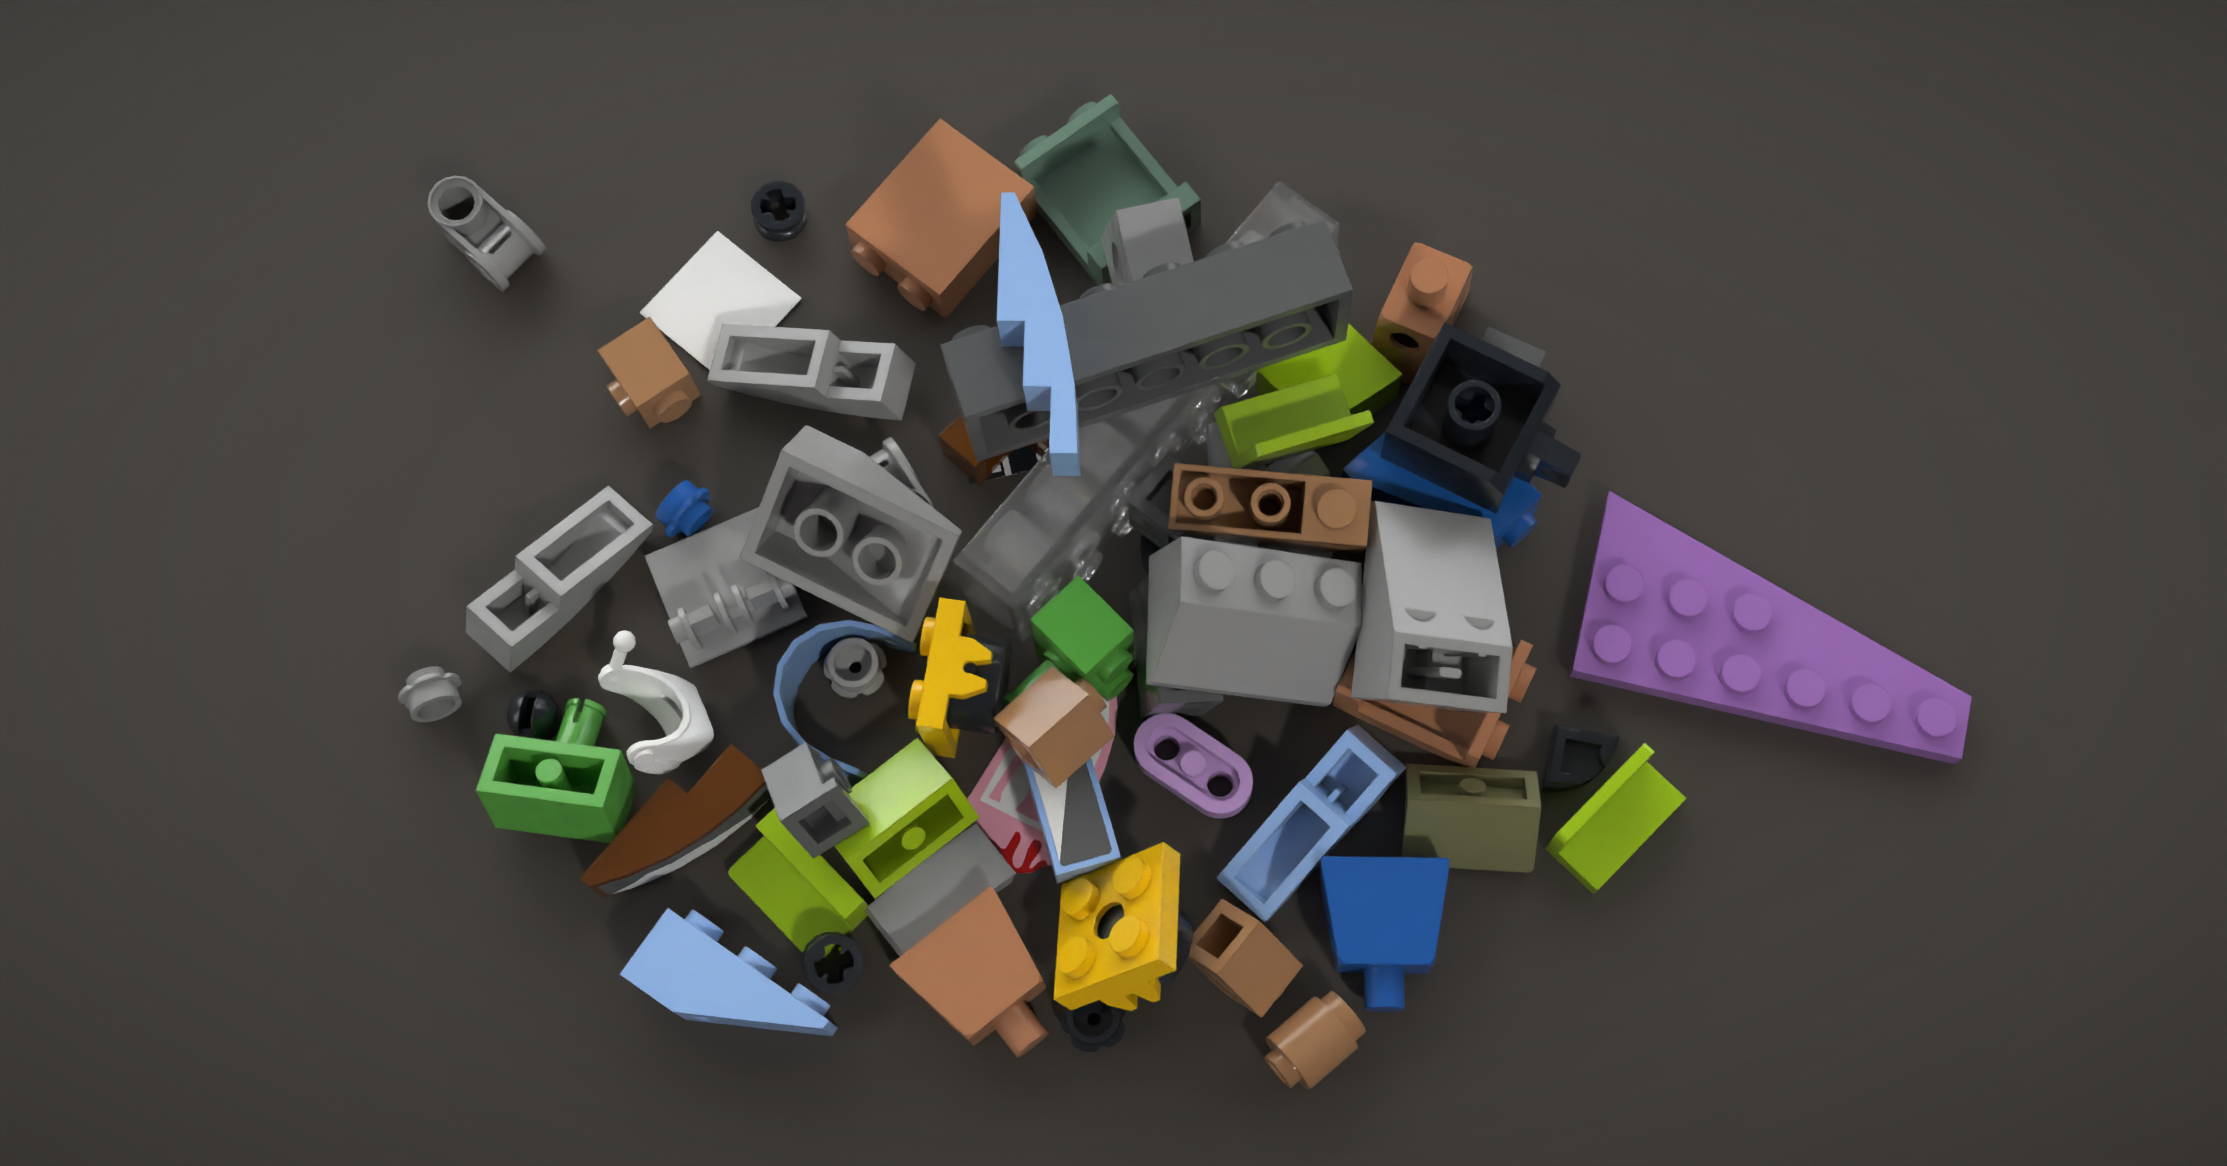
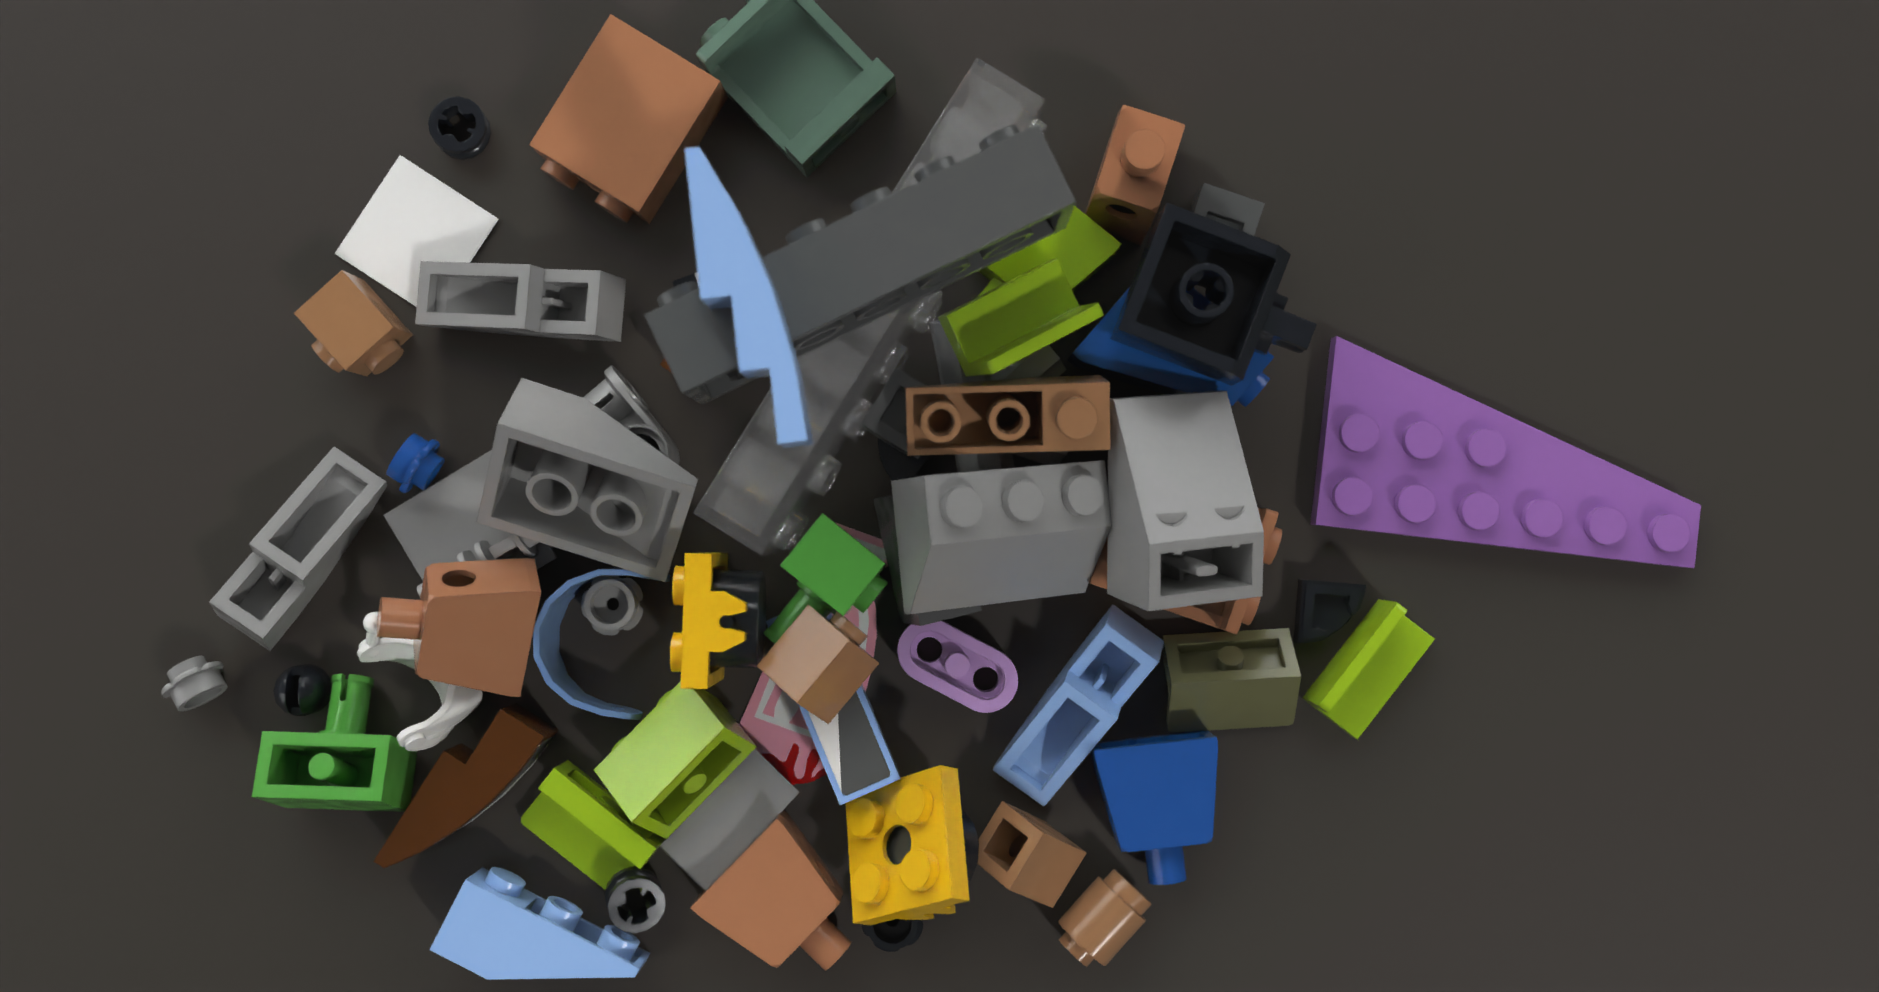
camera: 15 degrees left, 15 degrees up
(489, 236) = (157, 193): light grey piece -> none
(716, 655) = (469, 623): none -> nougat torso
(813, 799) = (588, 763): dark grey brick -> none
(1145, 238) = (850, 155): light grey brick -> none

